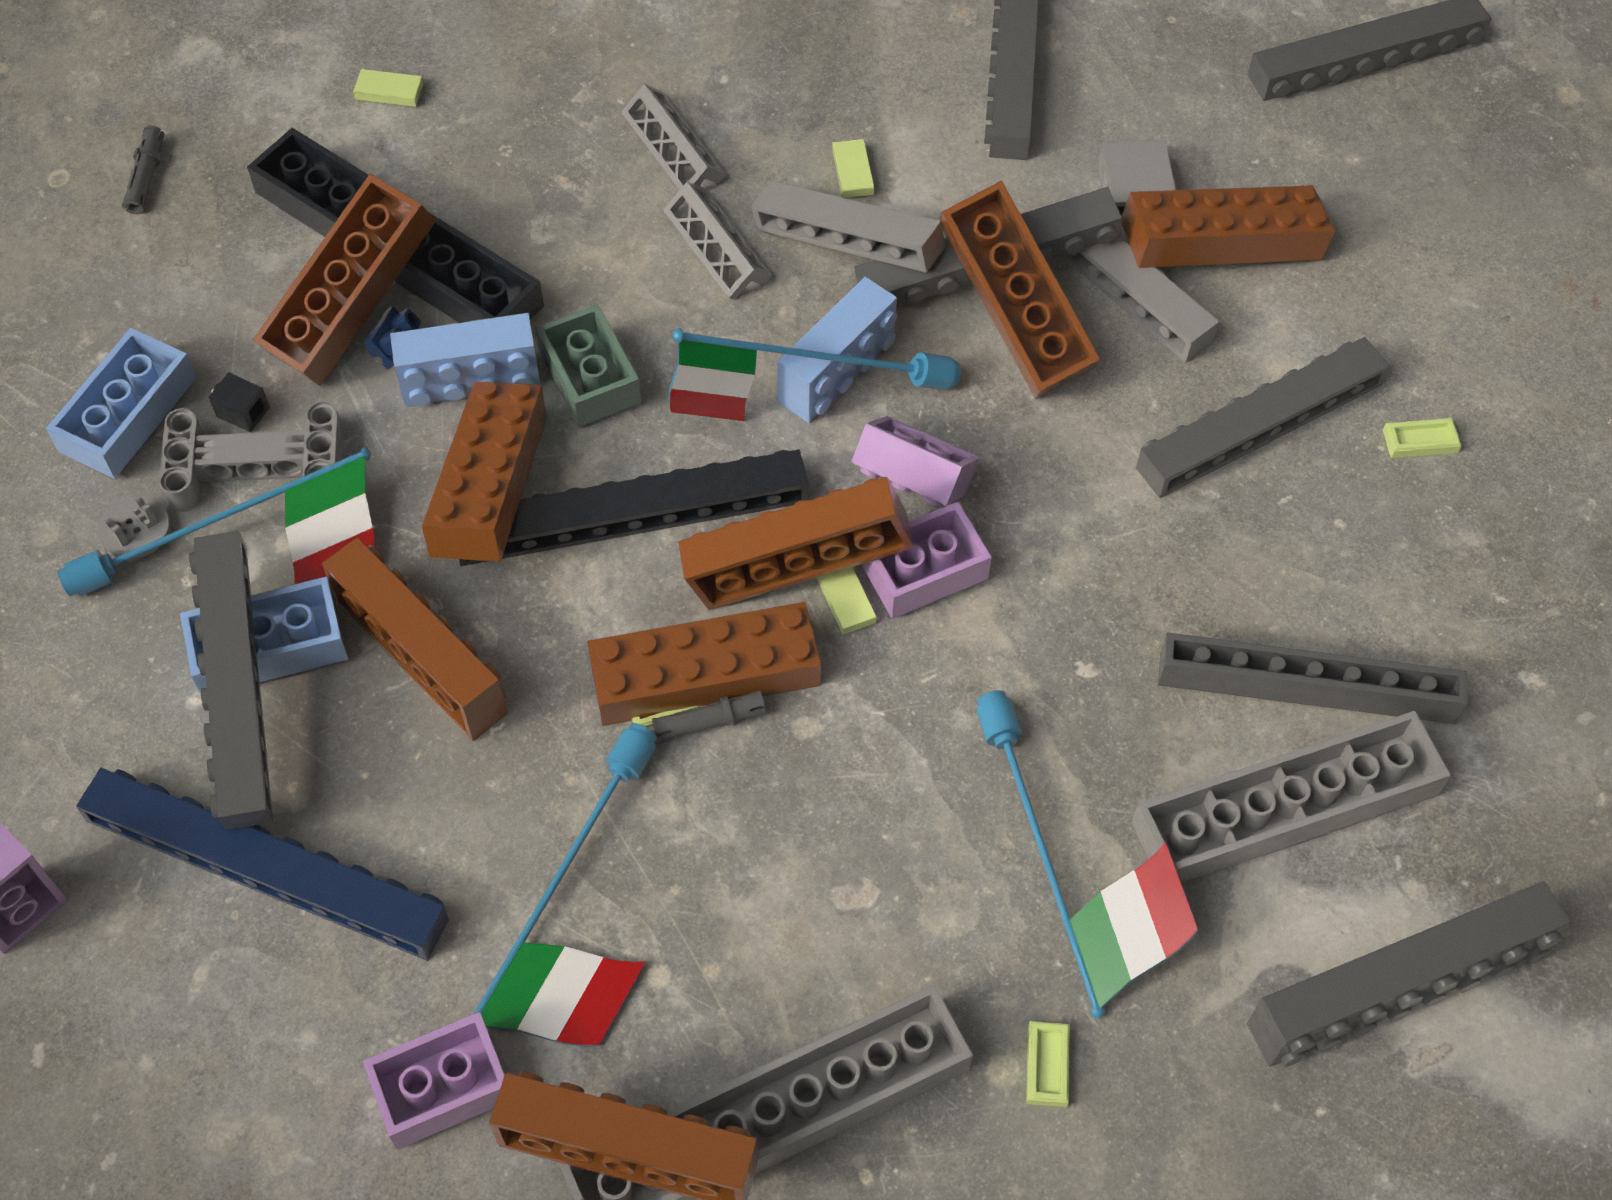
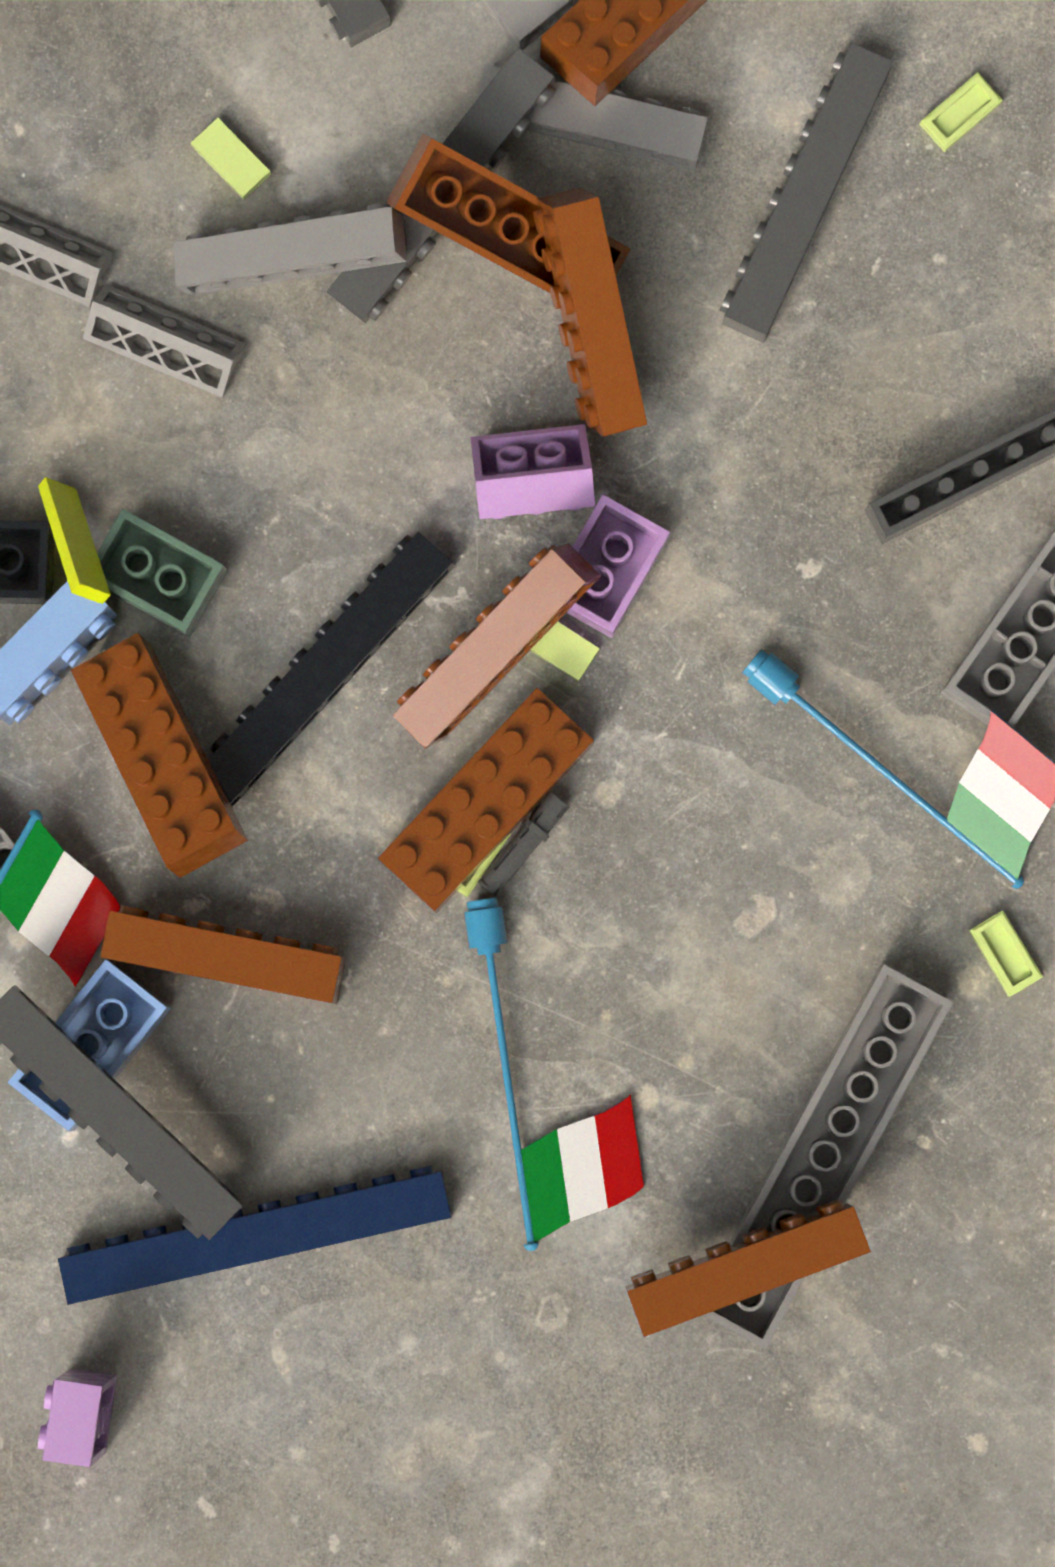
camera: 30 degrees left, 25 degrees up
(435, 1080) = (548, 1310): lavender brick -> none
(546, 301) = (74, 540): none -> neon yellow tile
(717, 373) = (314, 515): flag -> none
(855, 327) = (375, 397): light blue brick -> none
(1041, 365) = (590, 311): none -> dark orange brick

